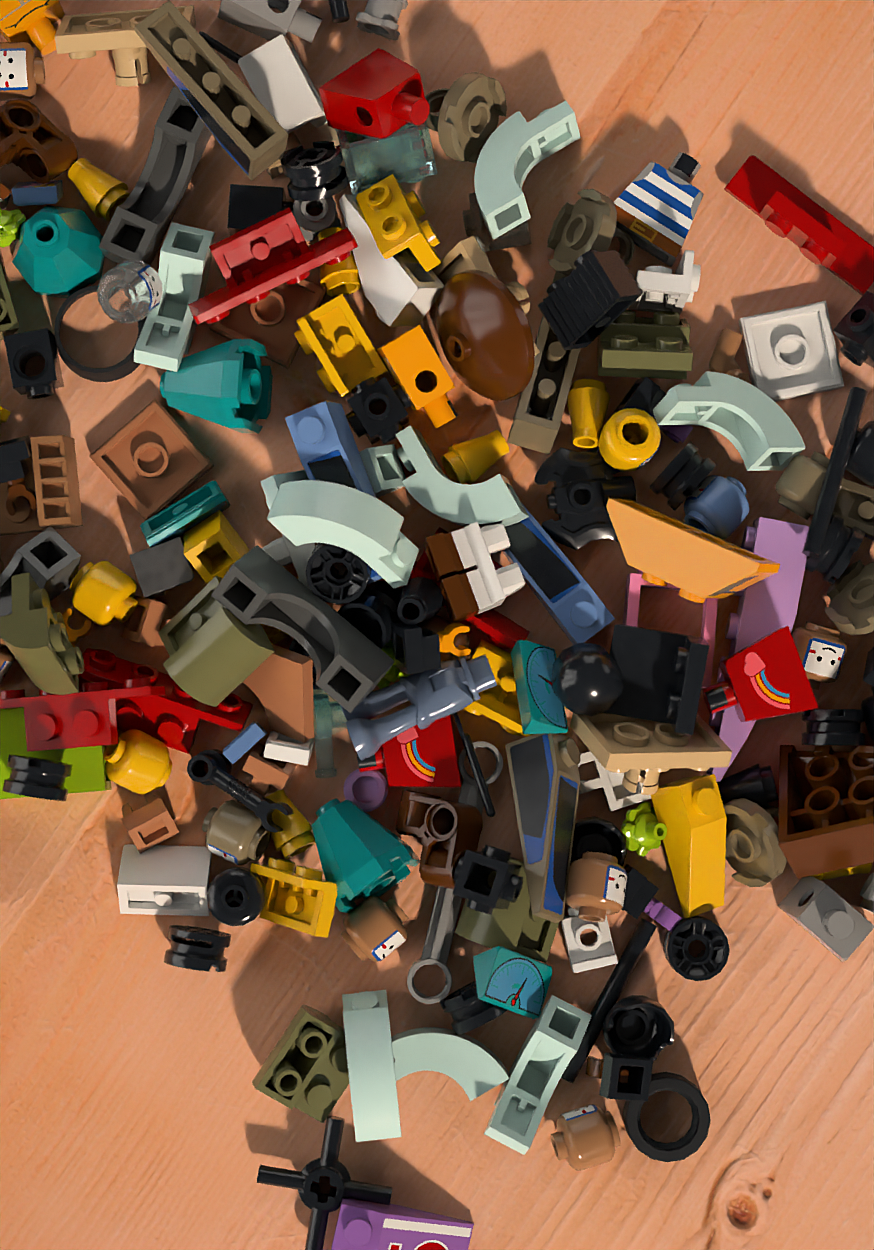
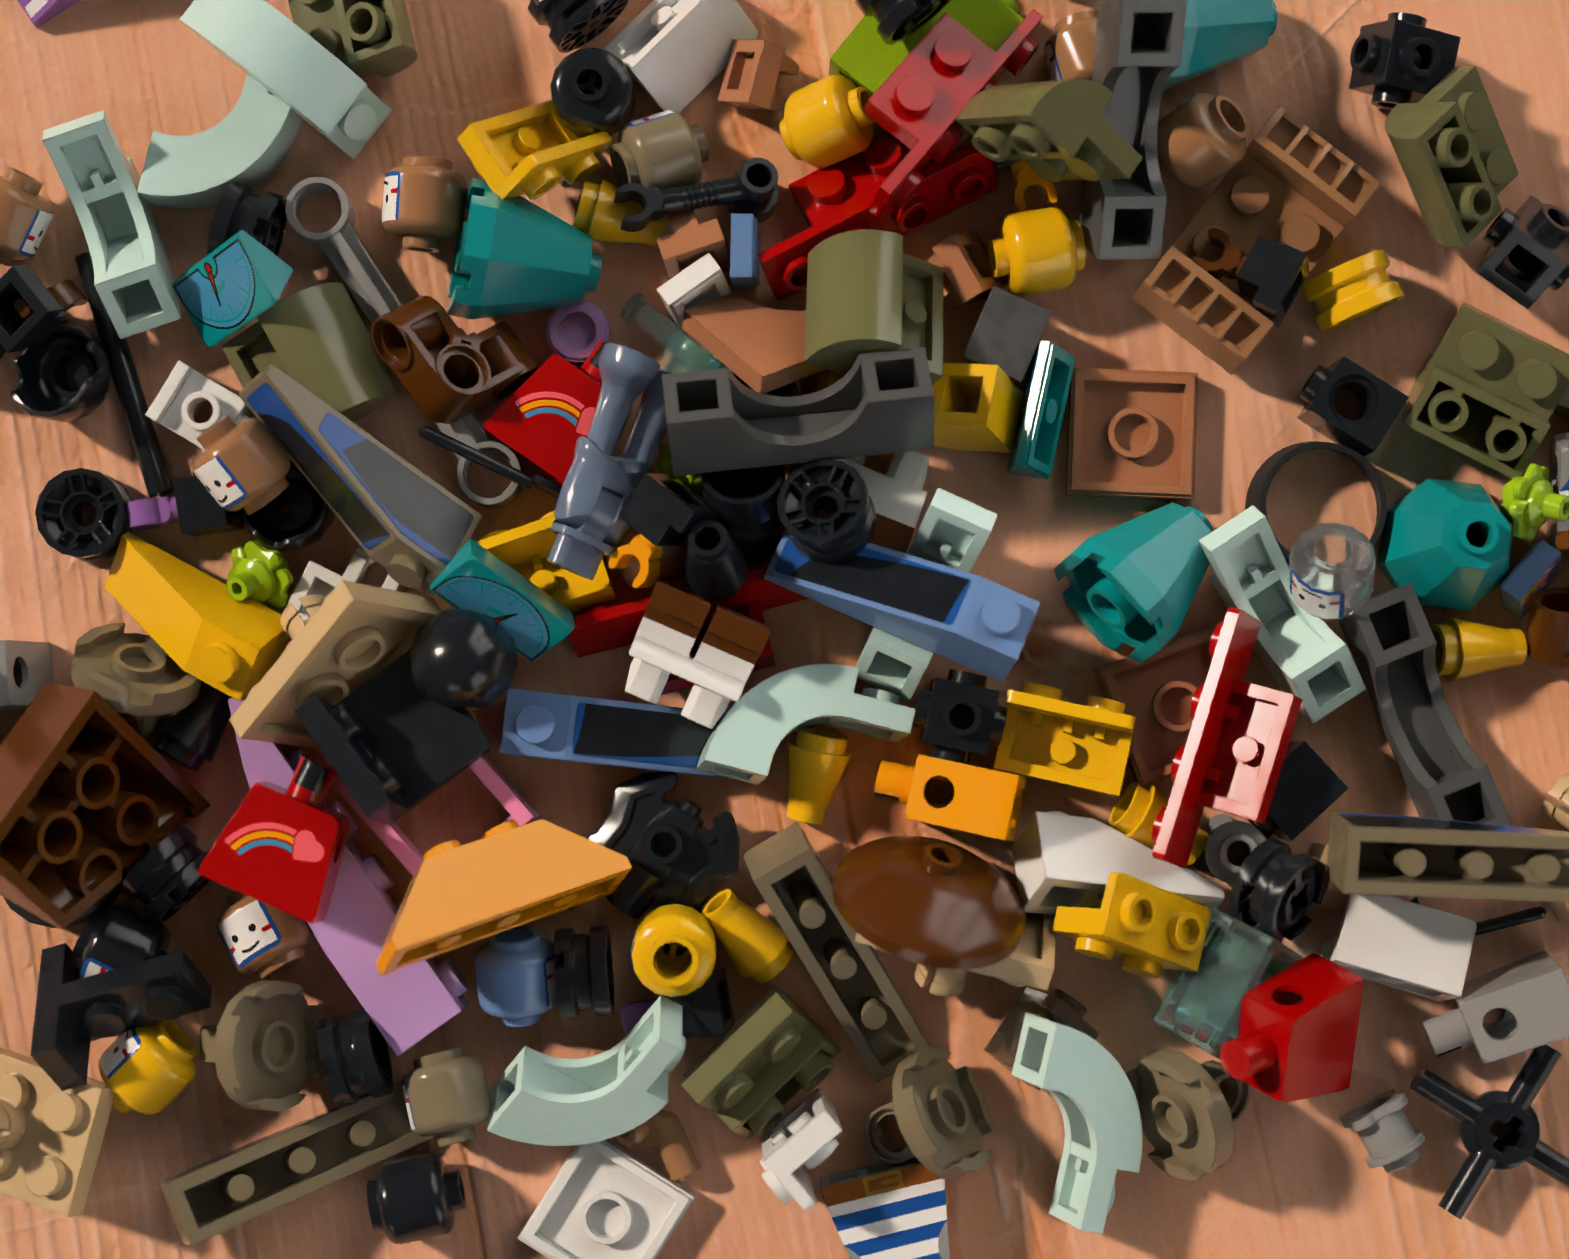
camera: 135 degrees right, 0 degrees up
(348, 519) = (867, 562): light aqua arch -> none
(472, 877) = (357, 335): black brick -> none
(589, 298) = (862, 1050): black brick -> none
(835, 472) = (430, 1135): black bar -> none

